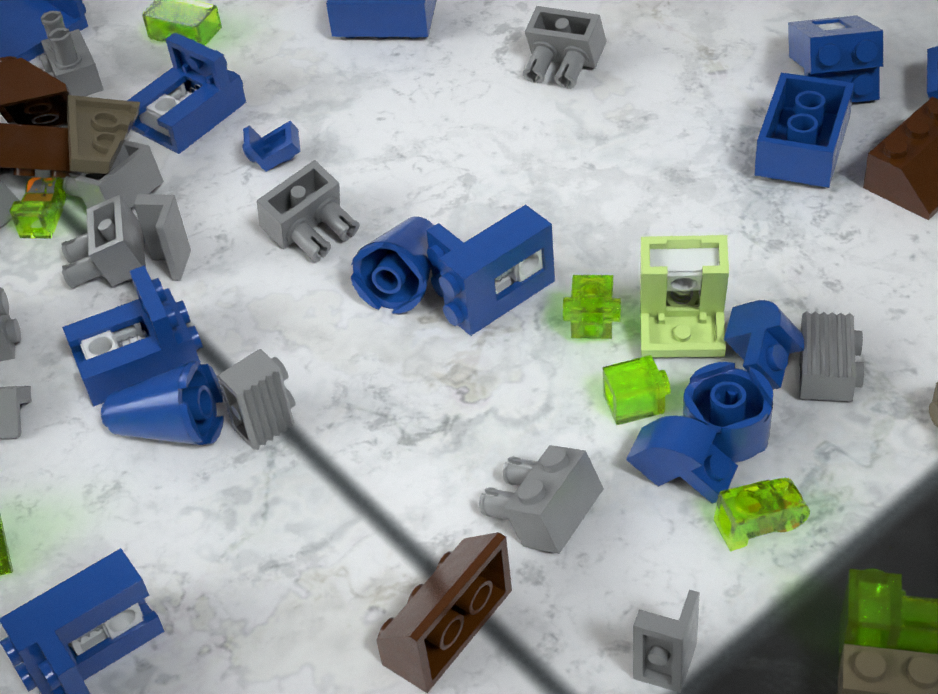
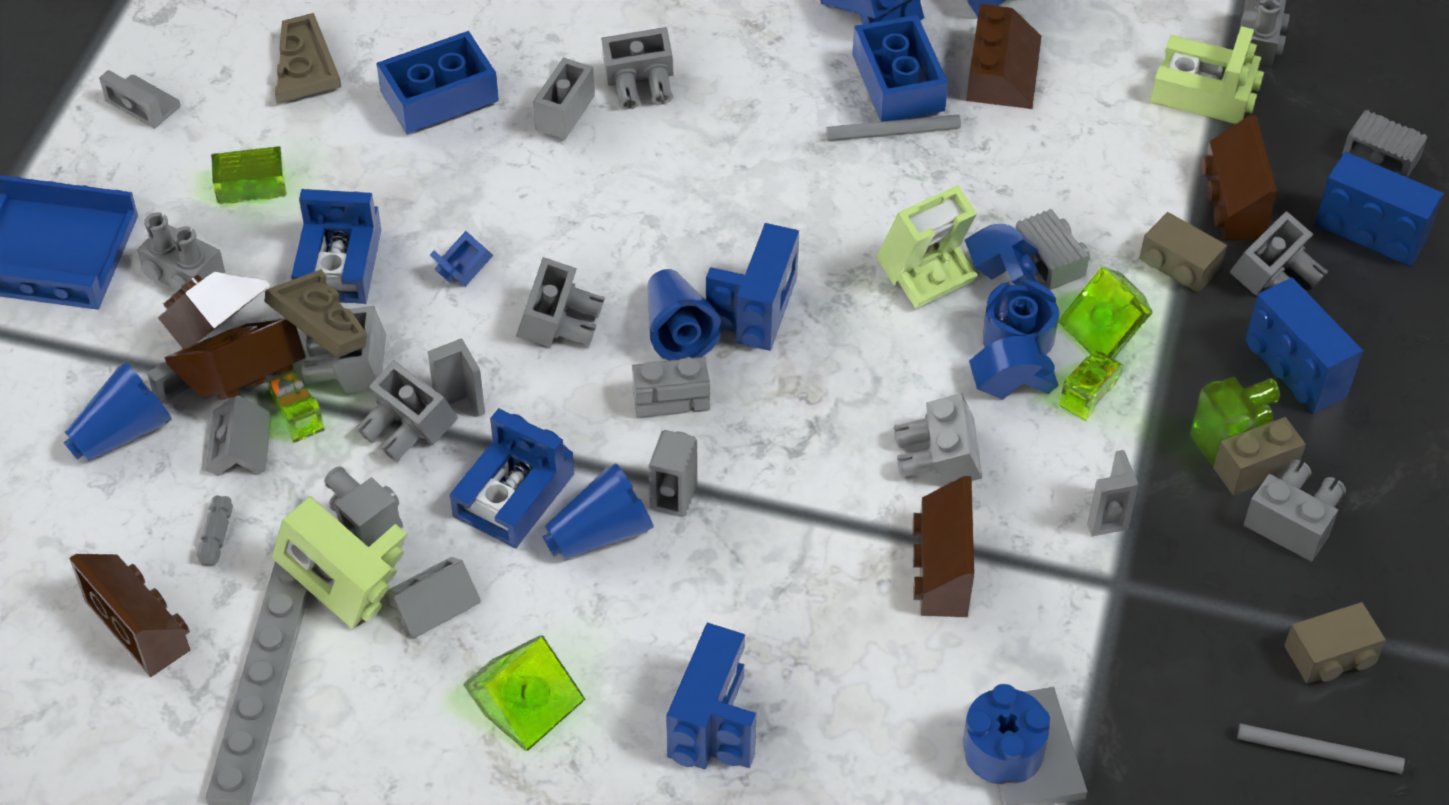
camera: 40 degrees left, 5 degrees up
(338, 323) = (671, 386): none -> light grey brick
(472, 48) = (564, 98): none -> light grey brick
(592, 307) = (858, 285): clear neon green brick -> none
(635, 389) = (938, 335): clear neon green brick -> none
(765, 183) = (893, 127): none -> light grey bar
(834, 443) = (1106, 313): none -> clear neon green slope

